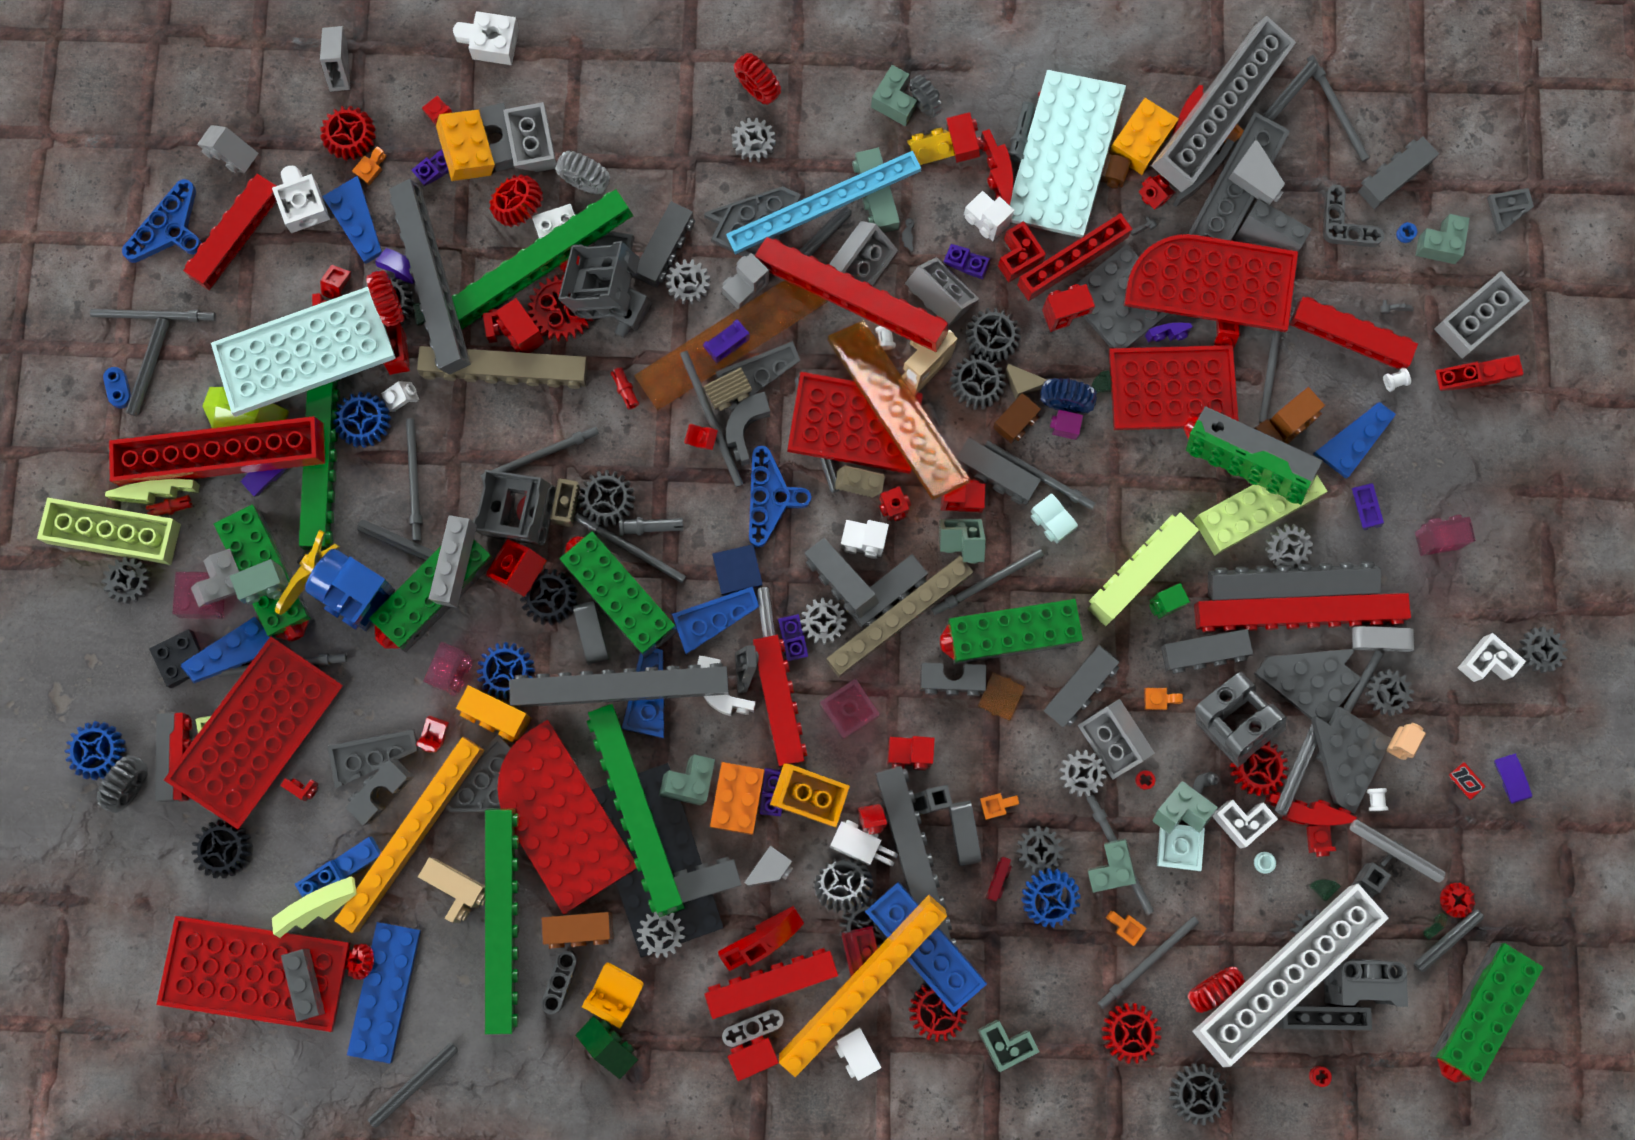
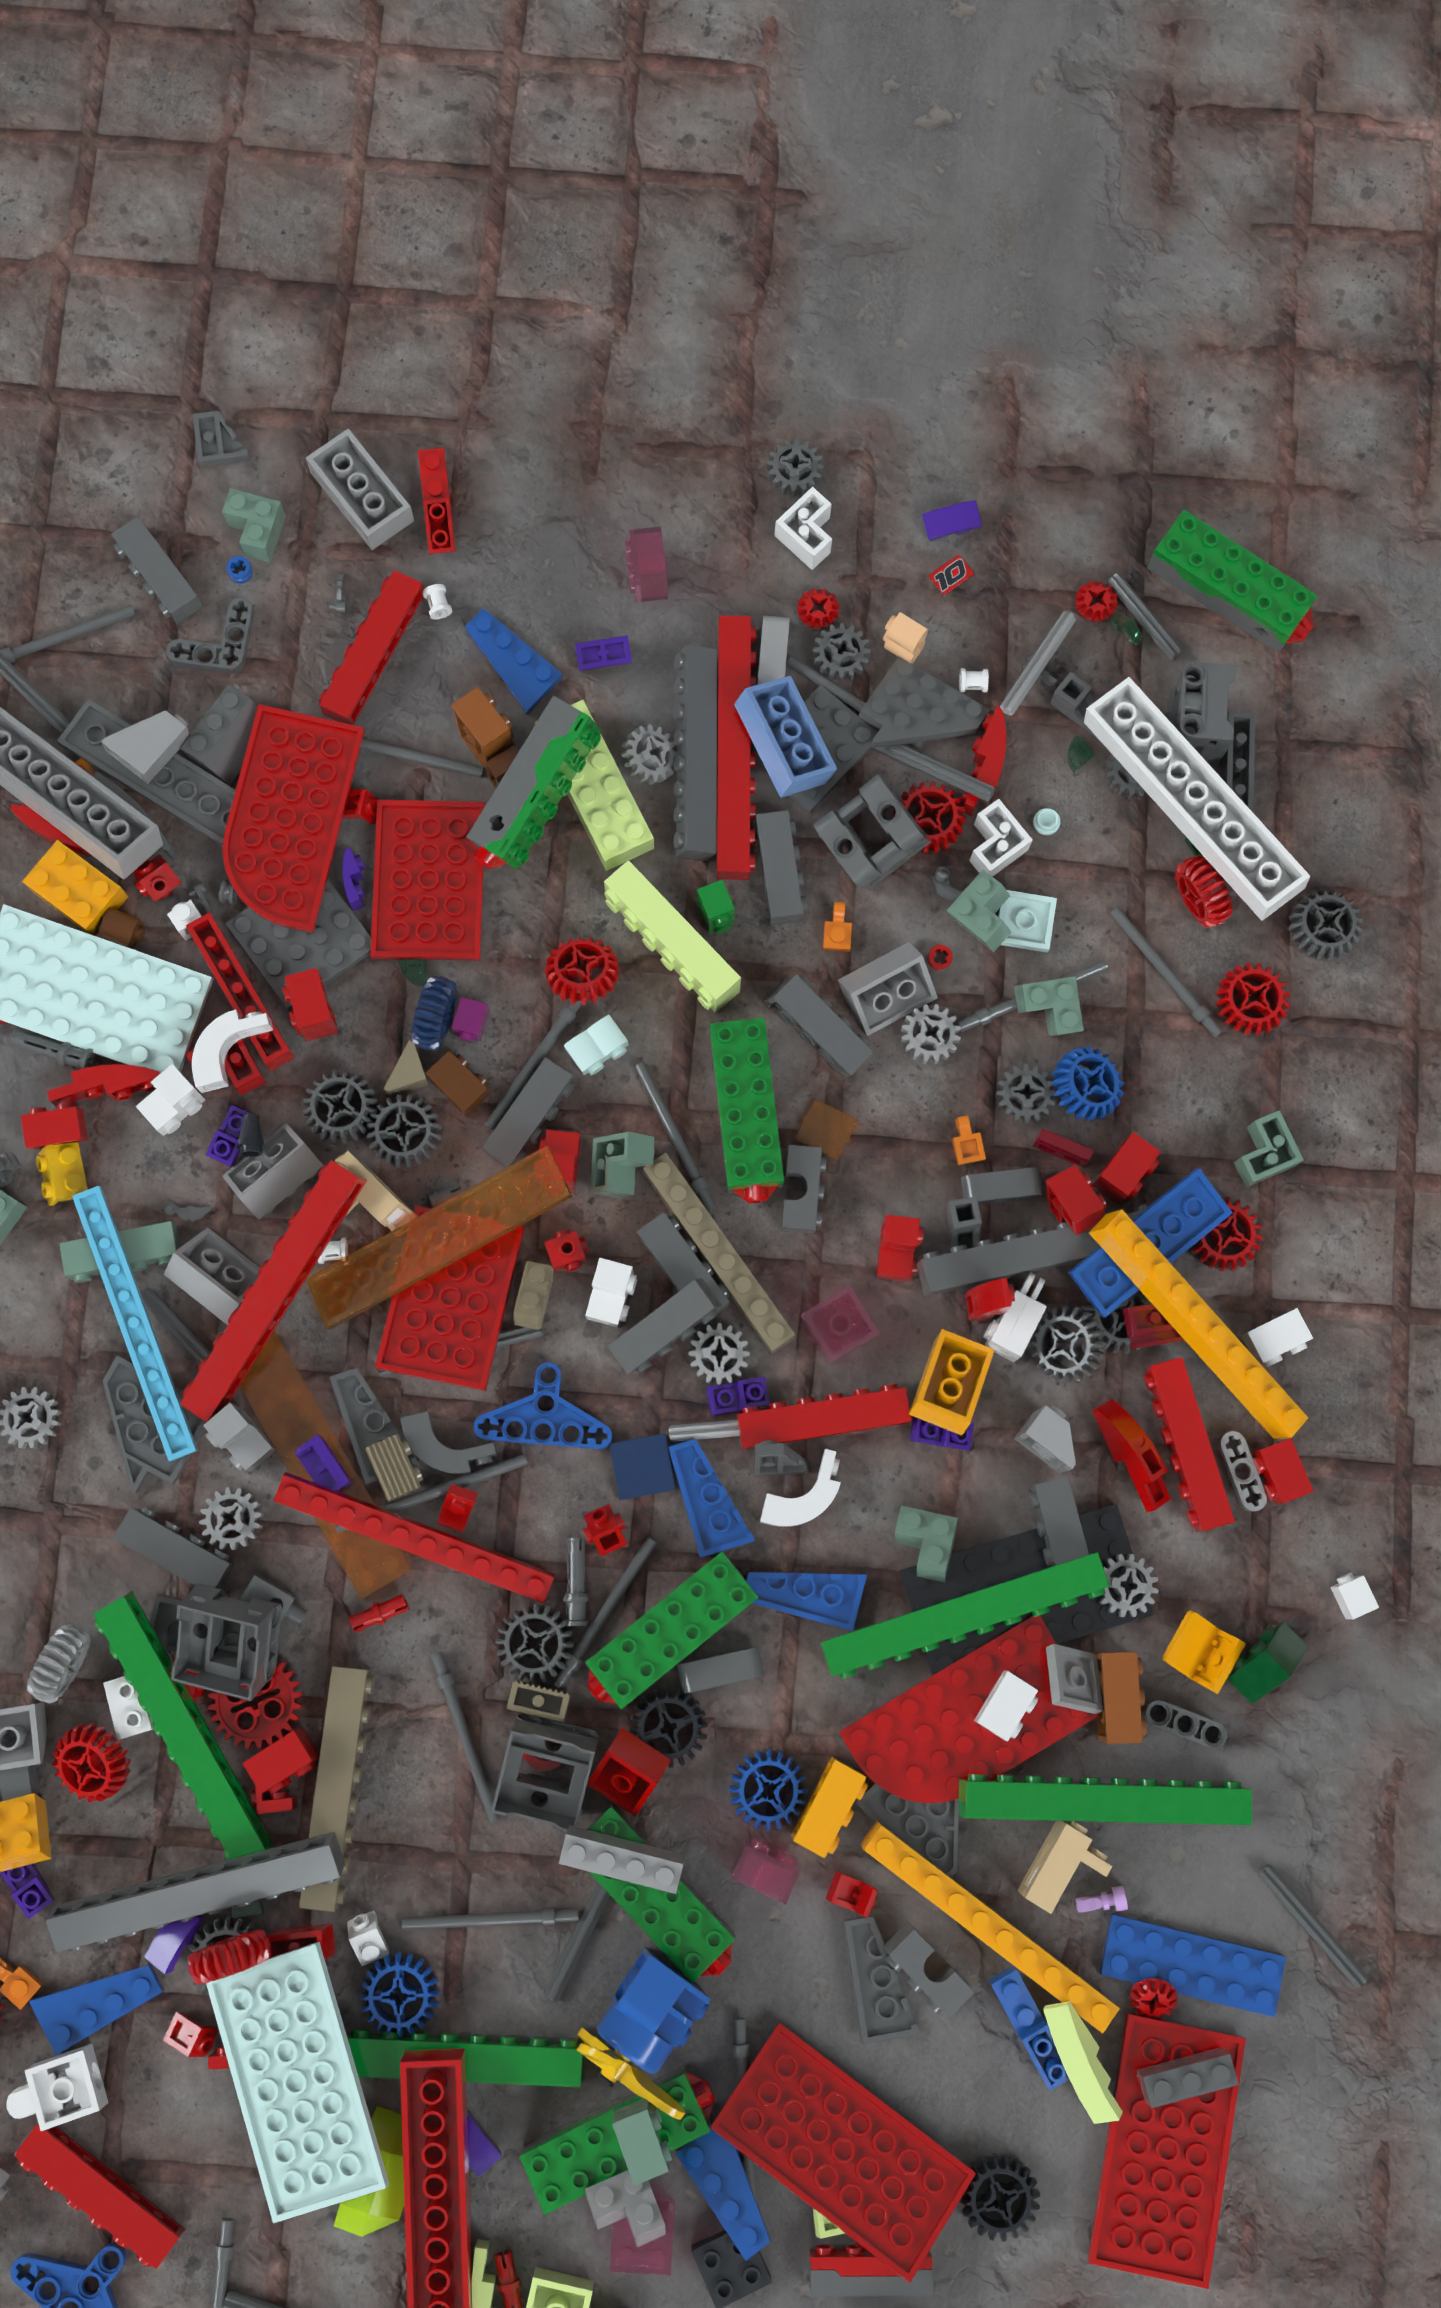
camera: 85 degrees left, 0 degrees up
(296, 788) = (920, 2089): red bracket -> none
(428, 914) = (1103, 1901): none -> lavender piece
(568, 841) = (1006, 1706): none -> white brick
(589, 892) = (1074, 1679): none -> light grey plate
(618, 686) = (801, 1633): dark grey brick -> none
(659, 1117) = (1354, 1596): none -> white brick
(678, 407) = (413, 1537): none -> red plate
(689, 543) = (605, 1529): none -> red brick
(737, 798) = (951, 1478): orange brick -> none
(956, 887) = (1074, 1200): none -> red brick
(963, 272) = (250, 1138): none -> black cone
(984, 929) = (1123, 1172): none -> red brick
(1033, 239) = (216, 1040): none -> white arch
(1107, 491) = (571, 981): none -> red gear
(1128, 928) = (1125, 993): orange plate -> none
(1129, 212) = (183, 914): none -> white brick
(1148, 241) = (227, 893): none -> dark grey bush
(1312, 647) = (785, 736): none -> medium blue brick
(1315, 1071) = (1297, 786): red bush -> none
(1320, 840) = (1022, 753): red bracket -> none
(1415, 674) = (818, 619): none -> red gear

